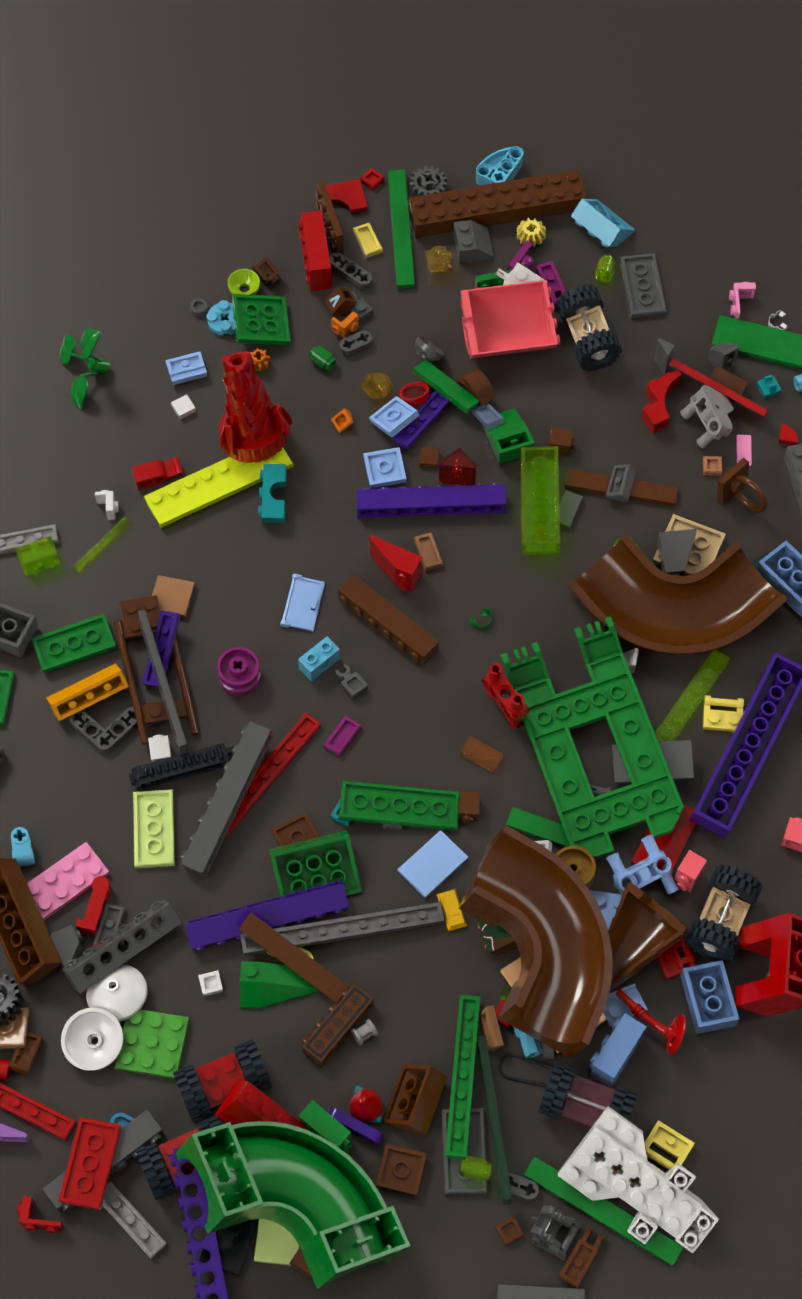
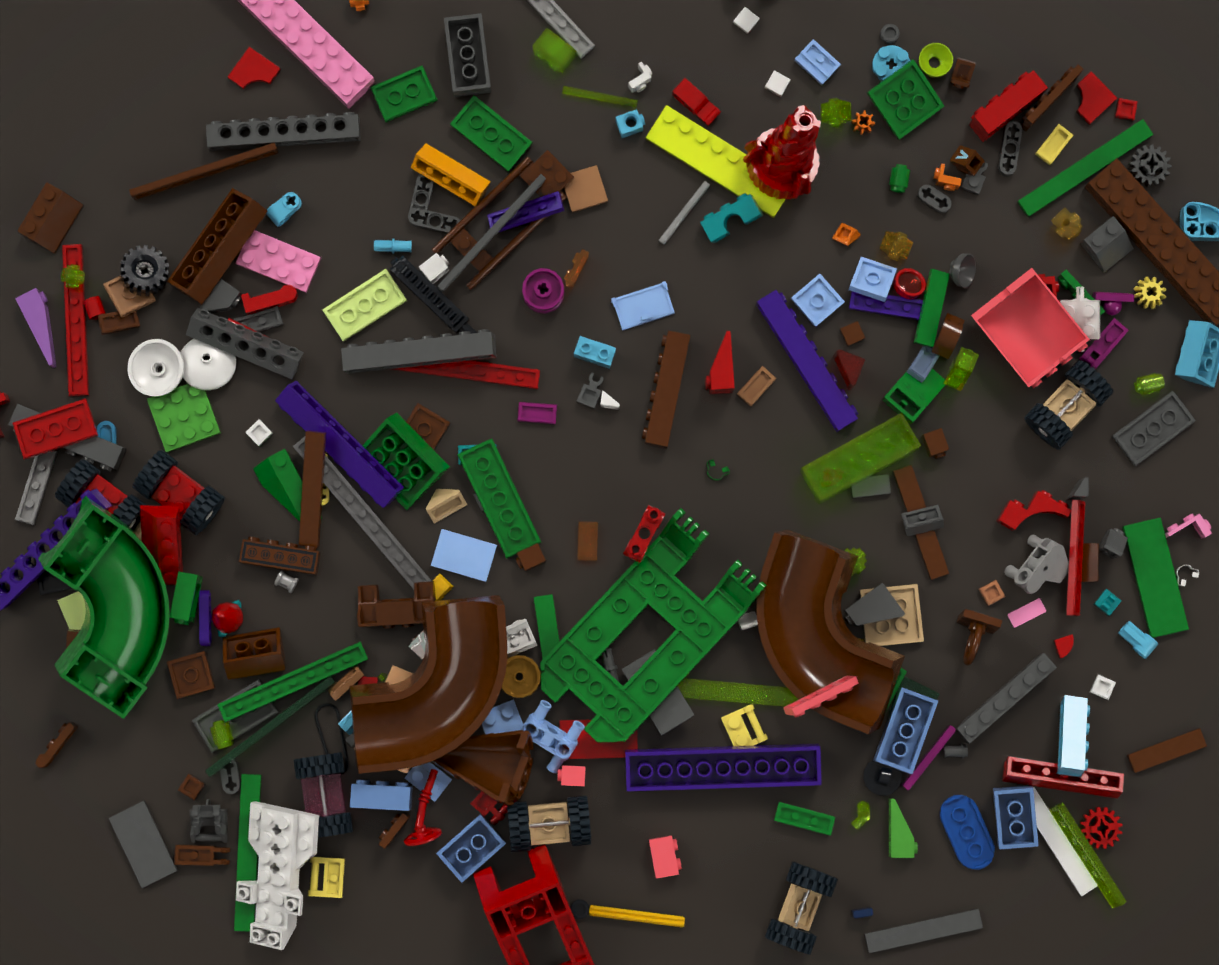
camera: 55 degrees right, 20 degrees up
(115, 402) = (746, 20): none -> white tile
(117, 775) = (392, 246): none -> medium azure axle
(143, 537) = (626, 131): none -> medium azure brick
(233, 631) = (572, 275): none -> clear orange plate
(244, 531) = (684, 212): none -> light grey bar
(369, 671) = (608, 402): none -> white slope
(376, 854) = (444, 503): none -> tan slope
(450, 946) = (392, 611): none -> reddish brown bracket
(511, 388) = (961, 368): none -> clear neon green brick
(655, 1058) = (398, 822): none -> reddish brown plate
(732, 622) = (826, 693): none -> coral plate

